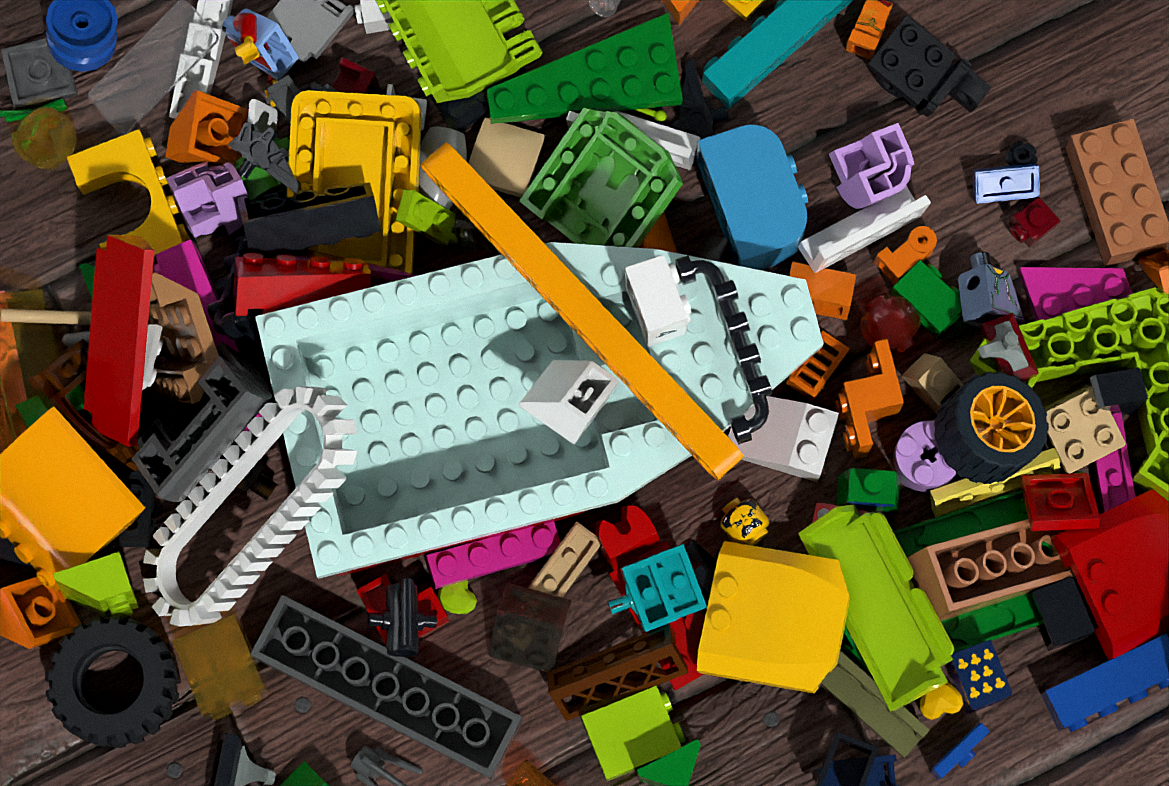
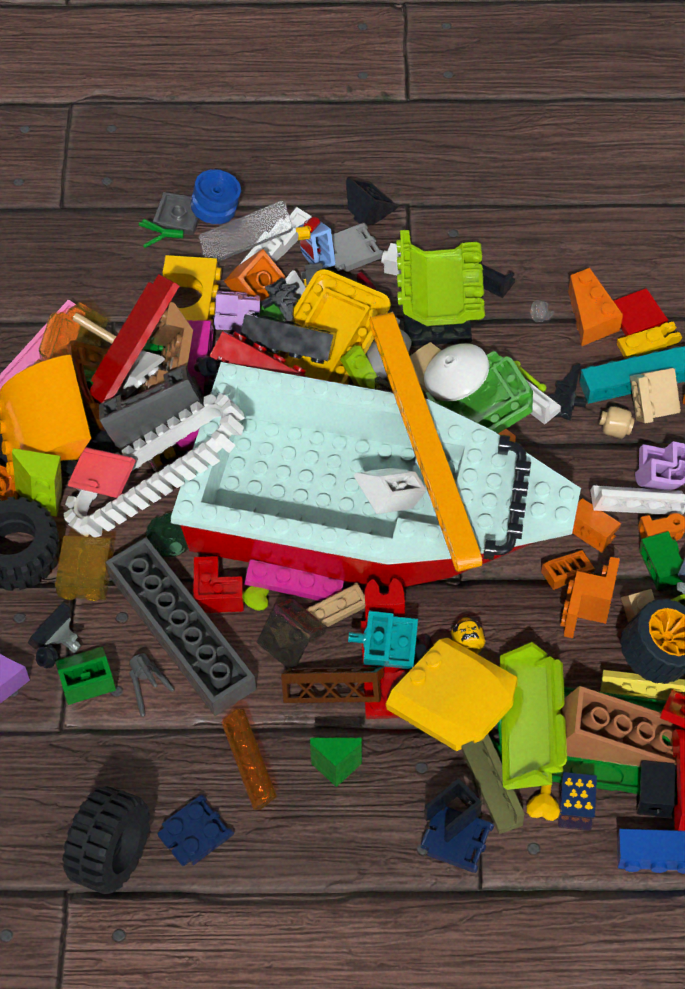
camera: 25 degrees right, 20 degrees down
(45, 138) = (159, 241): clear yellow piece -> none
(169, 534) = (101, 472): none -> coral door
(294, 568) = (166, 536): none -> clear green tile
(402, 619) = (212, 581): black pin -> none
(565, 160) = (456, 372): none -> white dish
(613, 75) = (534, 352): green wing -> none
(633, 732) = (320, 720): lime brick -> none
(656, 300) = (475, 447): white brick -> none
(754, 195) = (580, 443): dark azure brick -> none
(785, 122) = (617, 422): none -> tan head
(791, 439) = (523, 598): white slope -> none
(811, 65) = (655, 394): none -> tan bracket
(869, 490) = (569, 650): green torso -> none
(891, 320) = (633, 562): clear red plant -> none
(912, 470) = (605, 649): lavender brick -> none
(961, 752) = (539, 844): blue plate -> none

